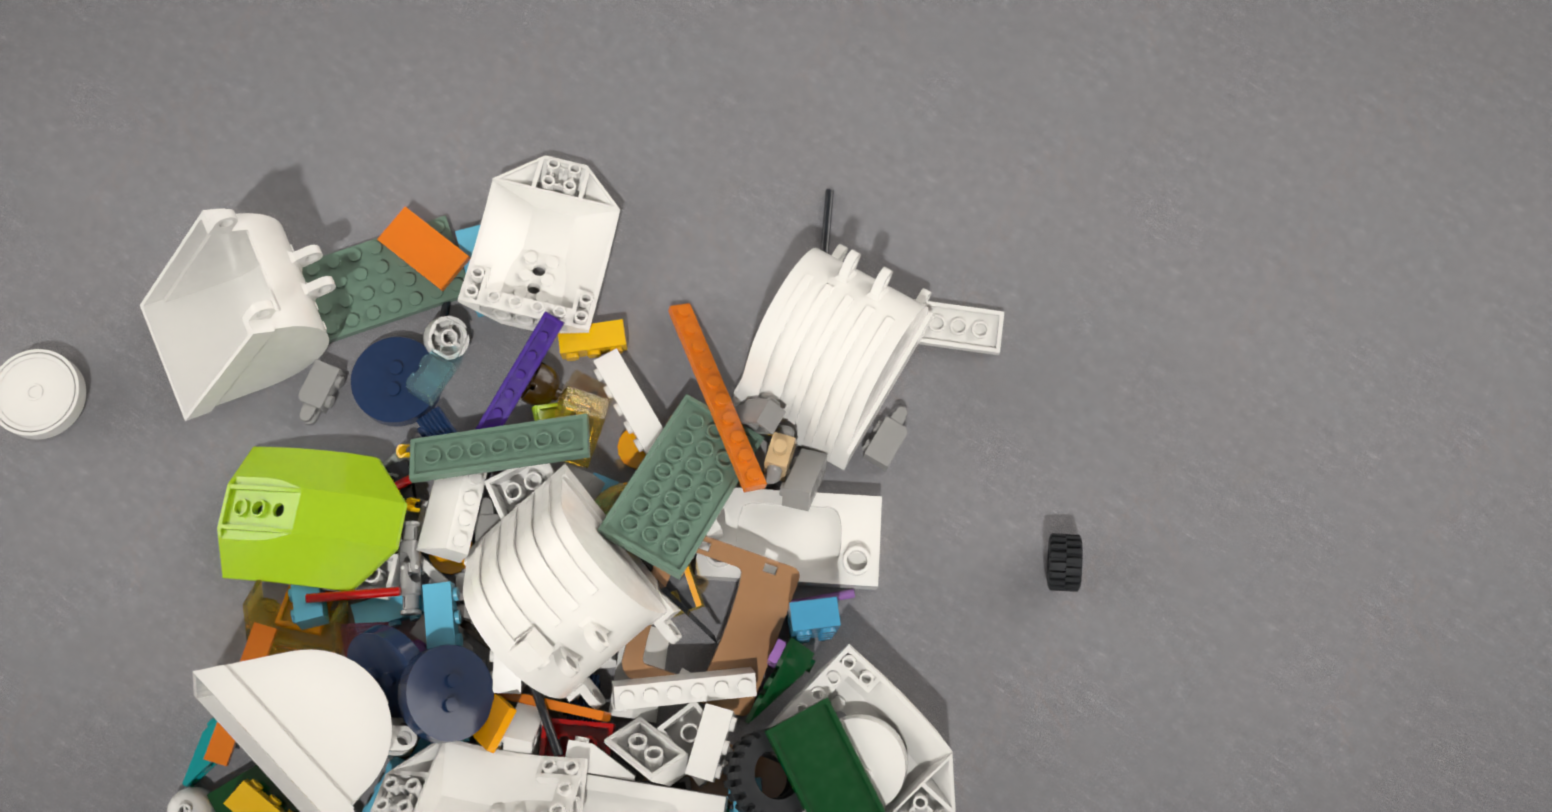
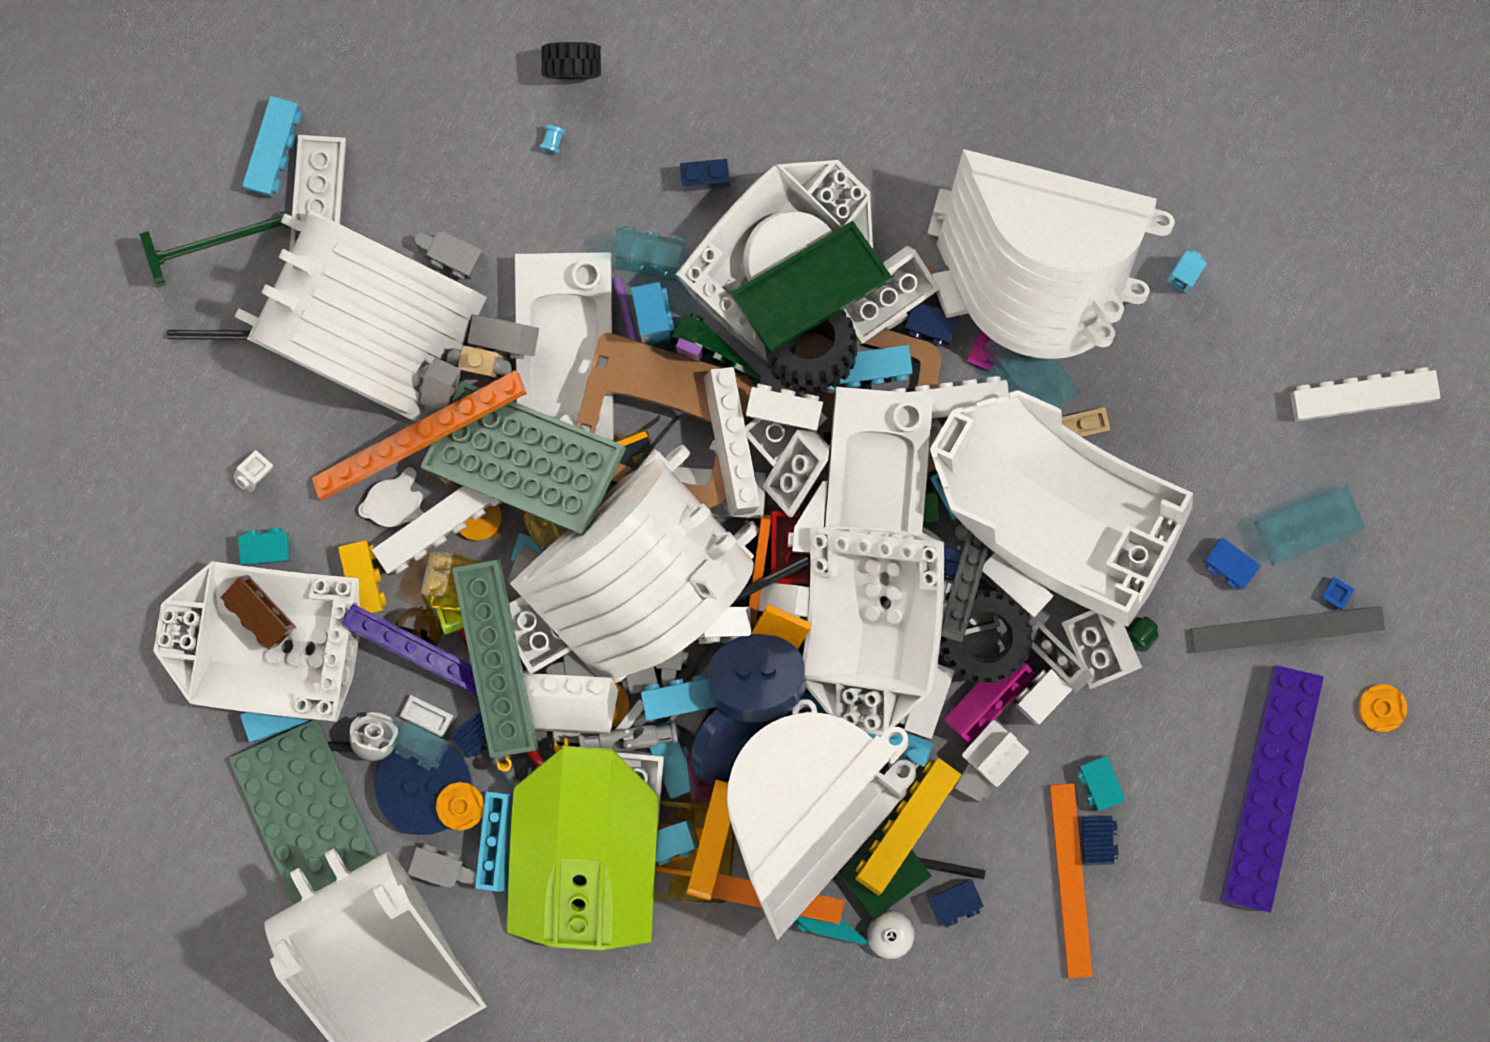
camera: 90 degrees left, 10 degrees up
(292, 636) = (710, 844): none -> light orange beam
(329, 437) = (495, 842): none -> medium azure brick
(353, 594) = (662, 792): red bar -> none
(371, 410) = (460, 806): none -> light orange tile
(424, 248) = (272, 773): orange tile -> none
(462, 389) = (426, 716): none -> white tile
(569, 244) = (257, 612): none -> reddish brown brick
(629, 258) = (264, 548): none -> teal brick
(660, 373) = (393, 502): none -> white tile
(700, 252) = (252, 471): none -> white bracket
(876, 622) = (648, 252): none -> clear light blue brick
(896, 180) = (157, 258): none -> dark green tile
(949, 684) = (704, 175): none -> dark blue brick
(990, 541) = (552, 139): none -> medium azure bush
(994, 288) = (272, 147): none -> medium azure brick

